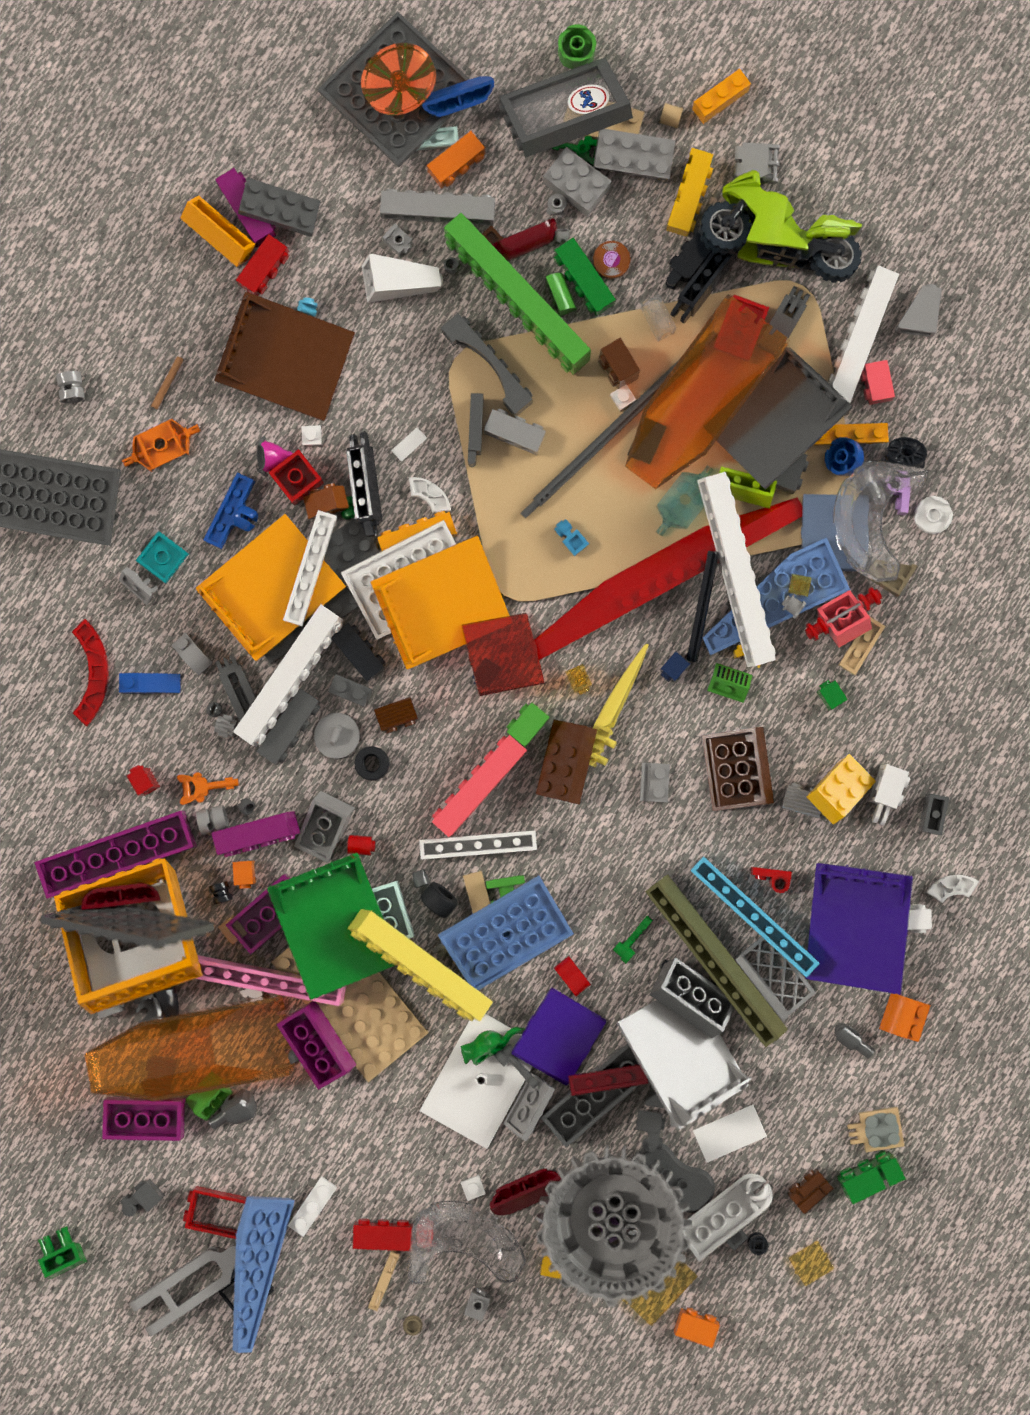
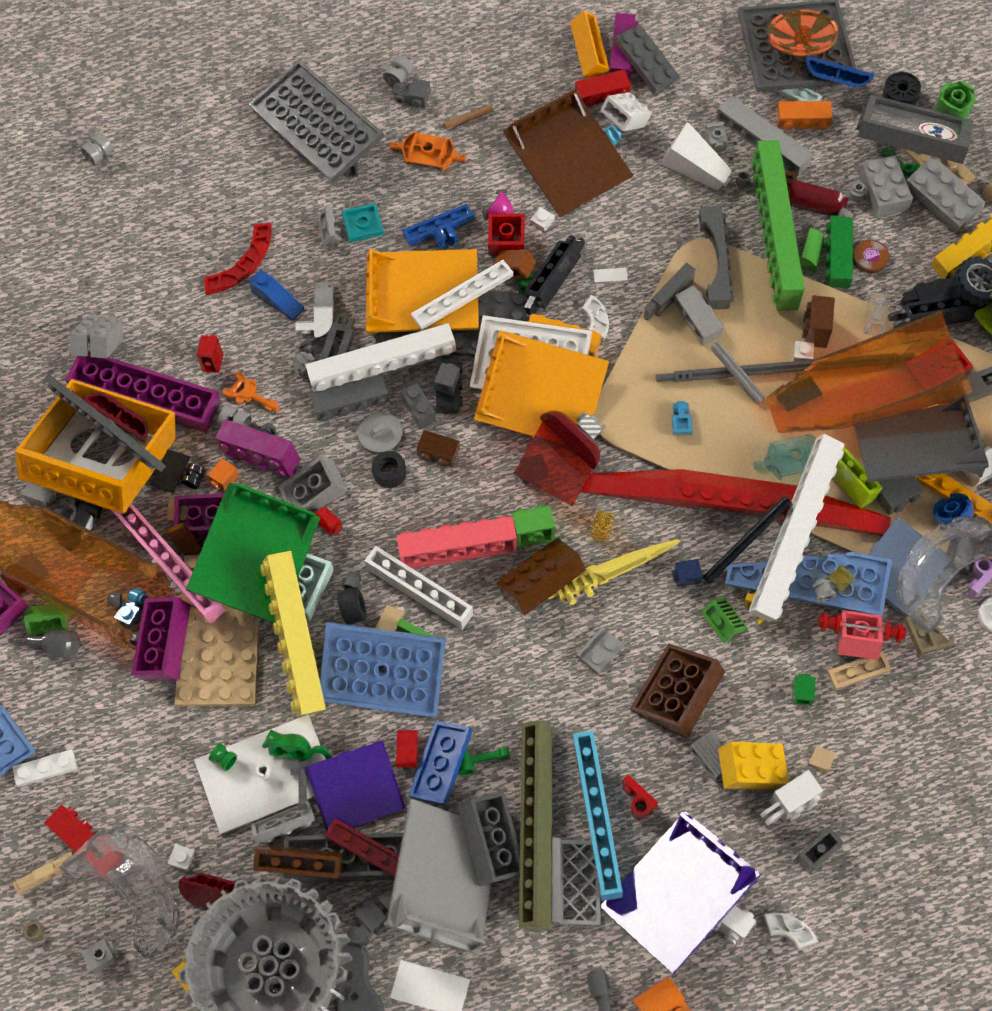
camera: 35 degrees right, 20 degrees down
(37, 836) = (104, 336): none -> light grey piece
(105, 398) = (416, 95): none -> dark grey brick
(198, 900) = (172, 473): none -> black piece
(209, 682) = (322, 321): none -> white brick
(249, 1040) = (115, 599): none -> dark grey hinge
(264, 952) = (184, 539): none -> reddish brown tile
(268, 1041) = (130, 611): none -> dark azure plate
(303, 277) = (626, 111): none -> white brick
(358, 652) = (447, 378): none -> dark grey brick
(442, 1095) = (222, 757): none -> green wheel
(498, 622) = (573, 436): none -> dark red brick
(504, 603) = (590, 425): none -> light grey brick
(521, 58) = (902, 88): none -> black wheel
(570, 1131) = (297, 861): none -> reddish brown brick
(587, 462) = (737, 372): none -> light grey axle
(607, 968) = (440, 763): none -> blue plate
(884, 738) = (822, 759): none -> tan slope

